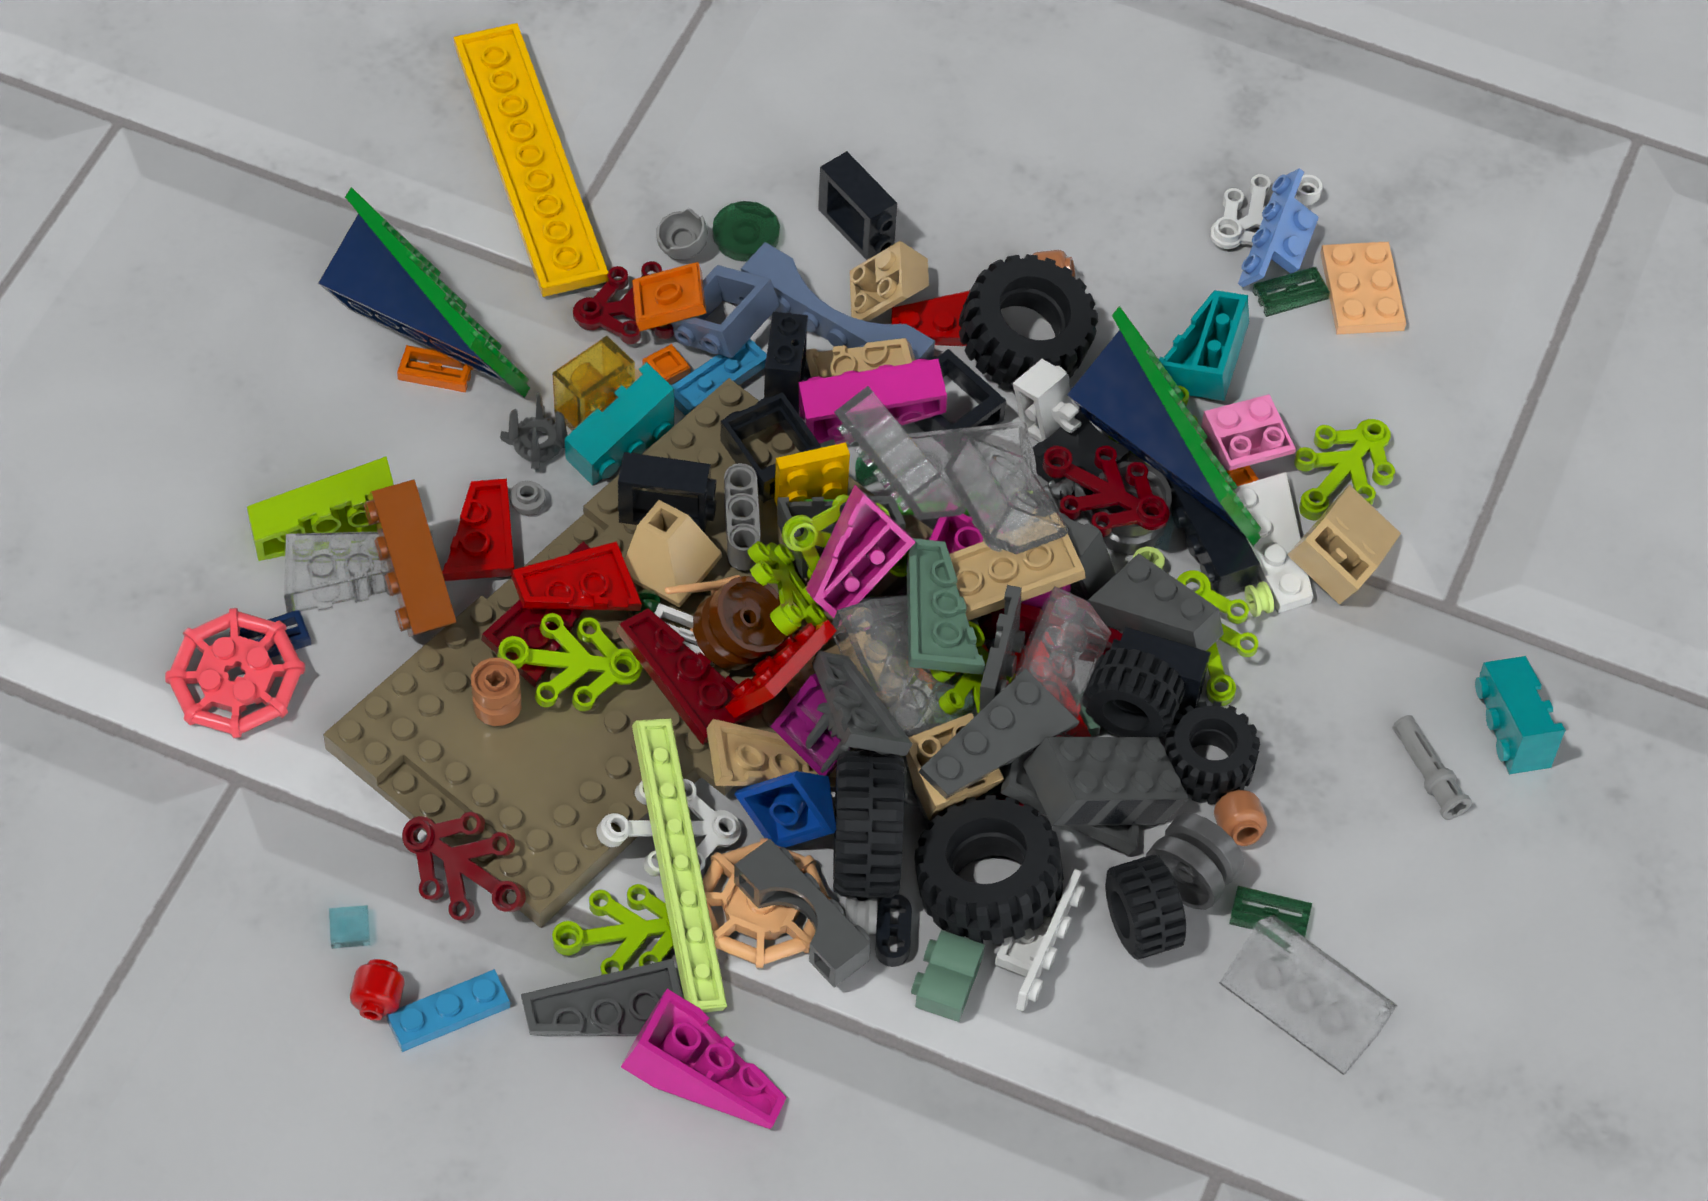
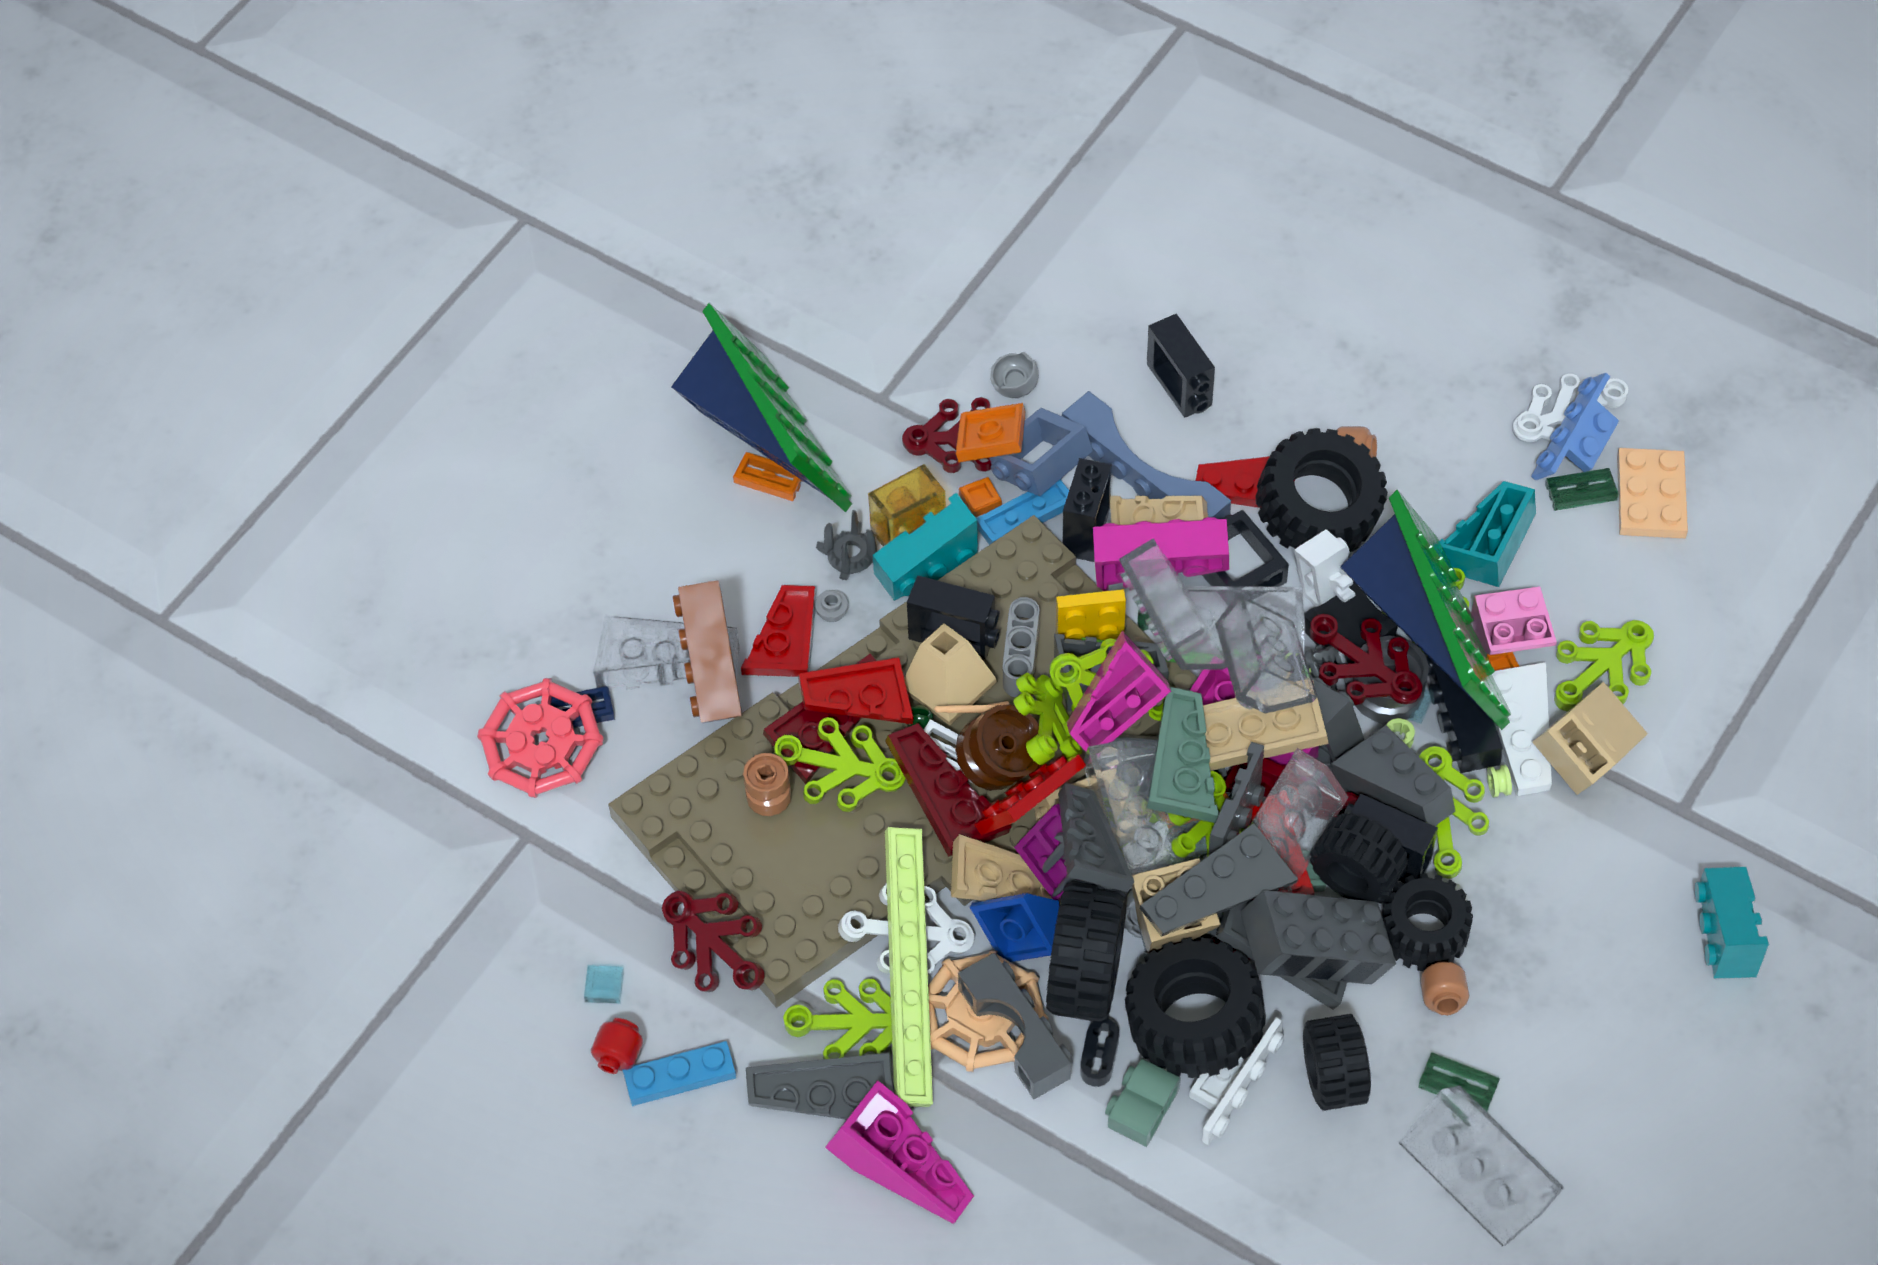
camera: 15 degrees right, 0 degrees up
(318, 507) = (636, 594): lime wedge -> none
(530, 160) = (888, 291): yellow plate -> none
(744, 228) = (1073, 374): clear green tile -> none
(757, 418) = (1047, 557): black window -> none
(862, 913) = (1071, 1033): light grey wheel -> none
(887, 280) = (1197, 439): tan slope -> none
(1199, 859) = (1393, 1023): flat silver wheel -> none
(1438, 779) = (1642, 975): light grey pin -> none

